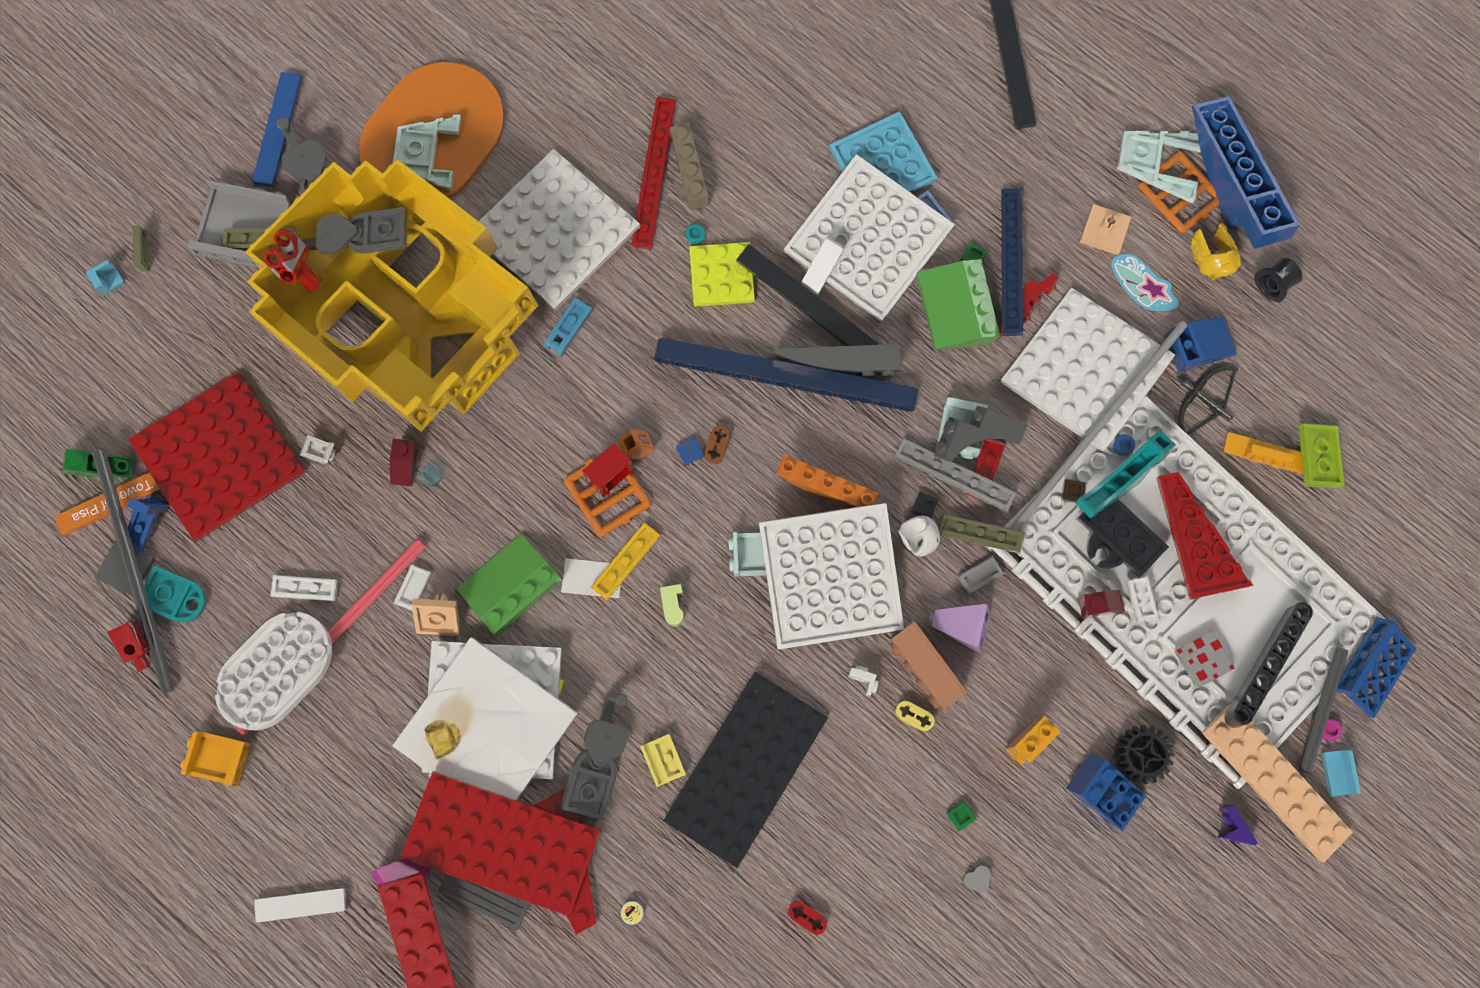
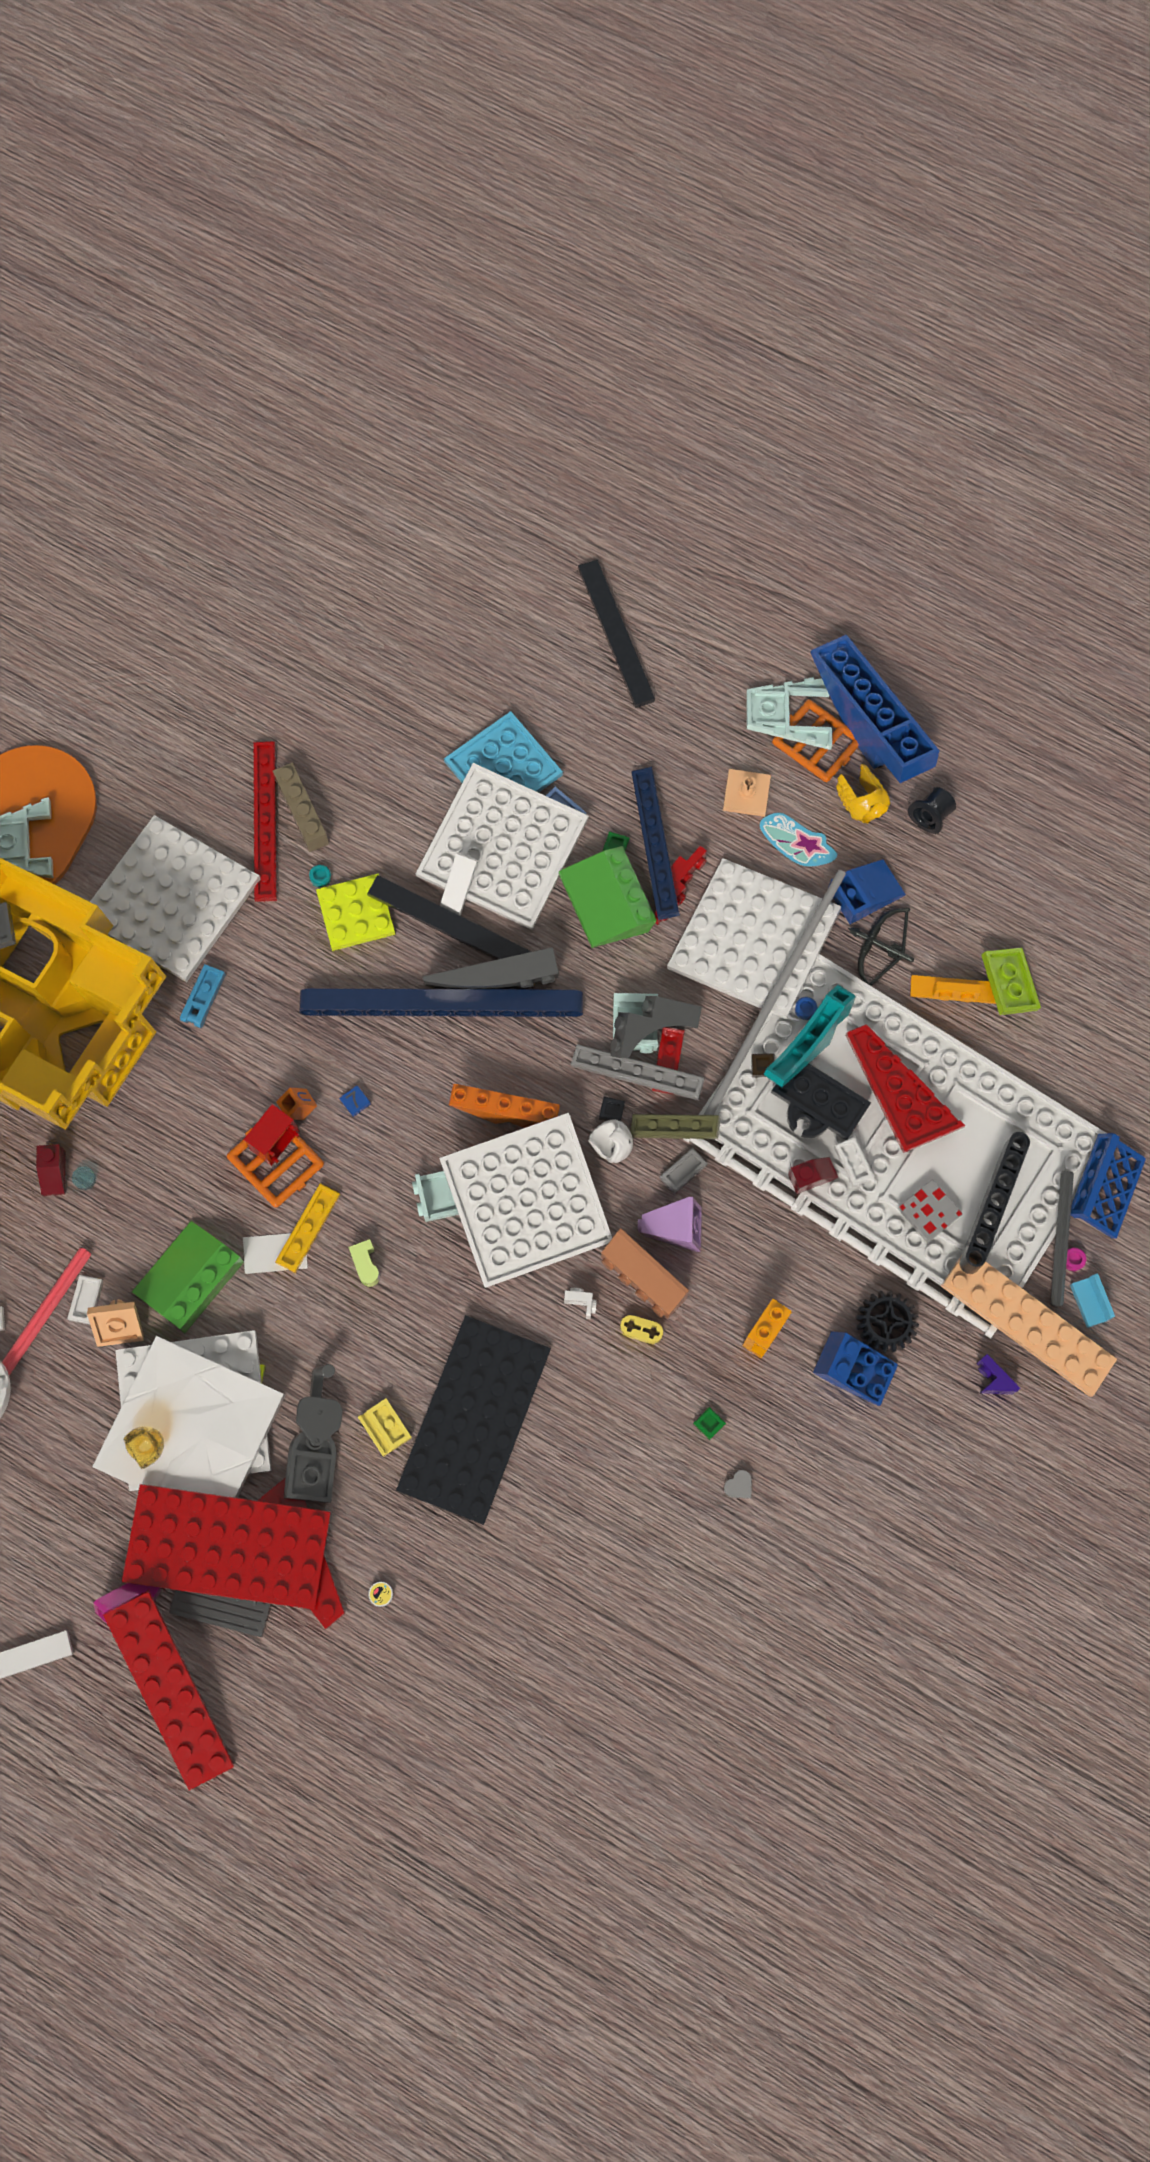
camera: 10 degrees left, 5 degrees down
(712, 443) = (377, 1088): dark orange beam -> none
(804, 921) = (570, 1556): red beam -> none

